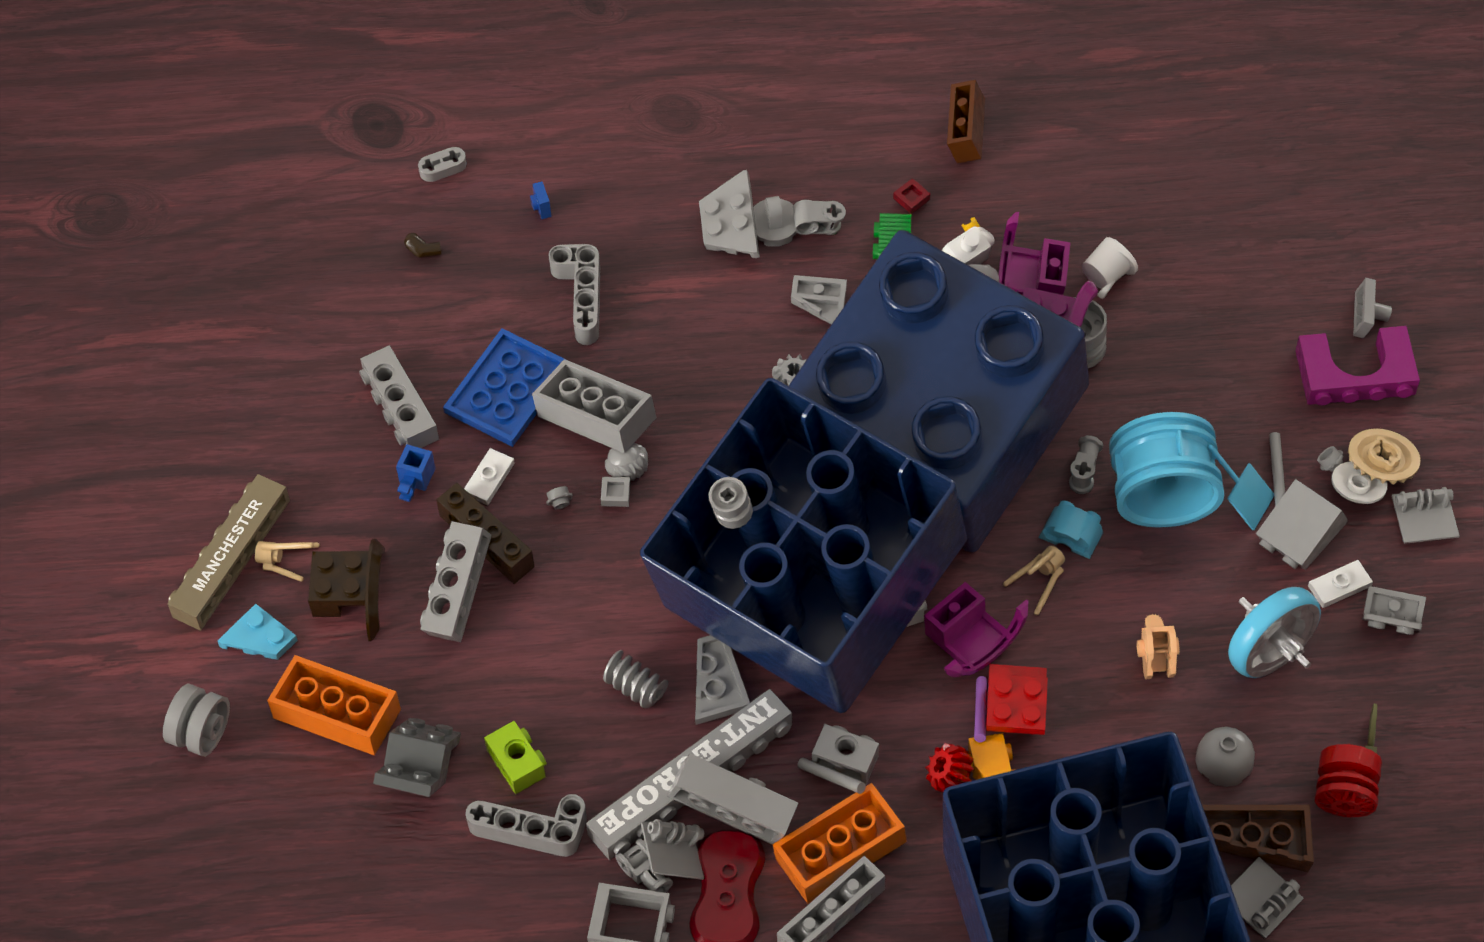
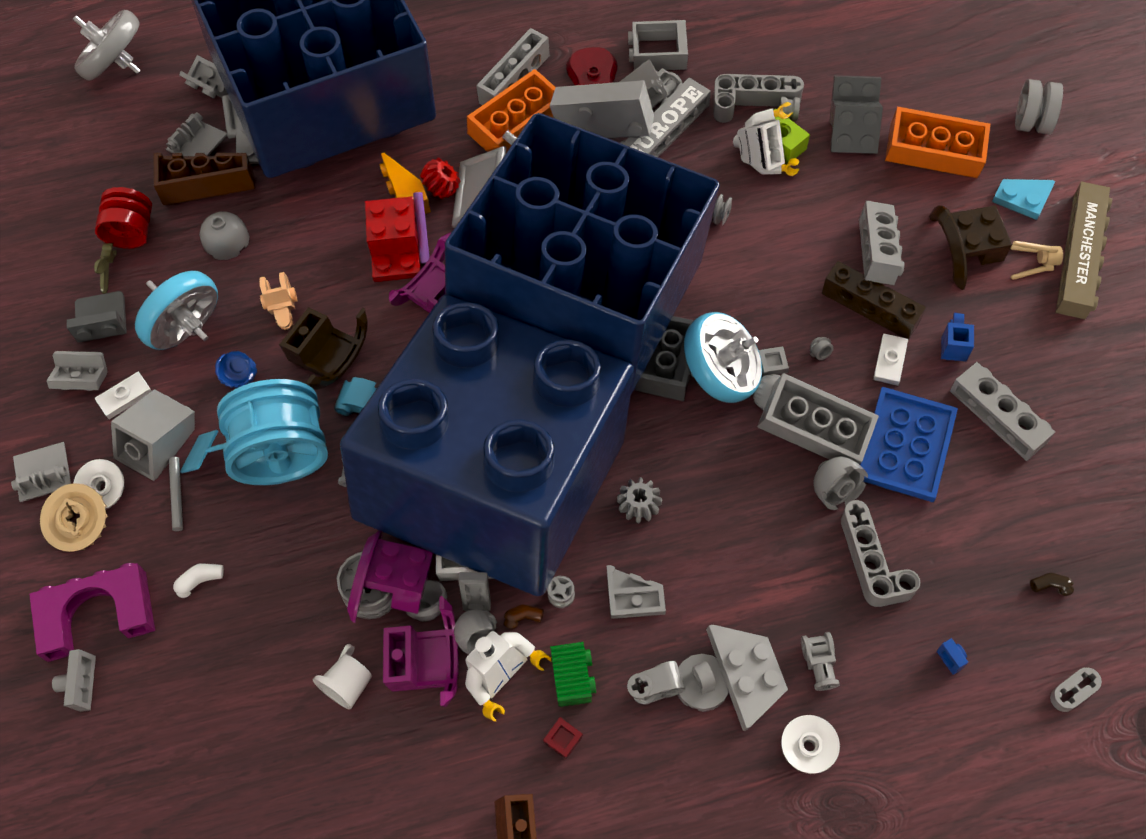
camera: 170 degrees right, 5 degrees up
(493, 792) = (794, 107): none -> light grey wheel
(544, 730) = (762, 143): none -> white torso
(596, 353) = (839, 481): none -> light grey cylinder
(654, 473) = (731, 350): none -> flat silver wheel
(661, 217) = (820, 657): none -> light grey connector
(693, 148) = (820, 734): none -> white dish
(730, 502) = (647, 201): light grey wheel -> none
(901, 751) = (473, 176): none -> light grey piece
(1047, 563) = (378, 363): tan plant -> none
(1108, 584) = (322, 348): none -> dark brown piece
(1210, 581) = (235, 369): none -> blue hair
(1252, 385) = (196, 575): none -> white arm
(1330, 458) = (130, 507): light grey plate -> none
(1374, 672) = (98, 317): none -> dark grey bracket

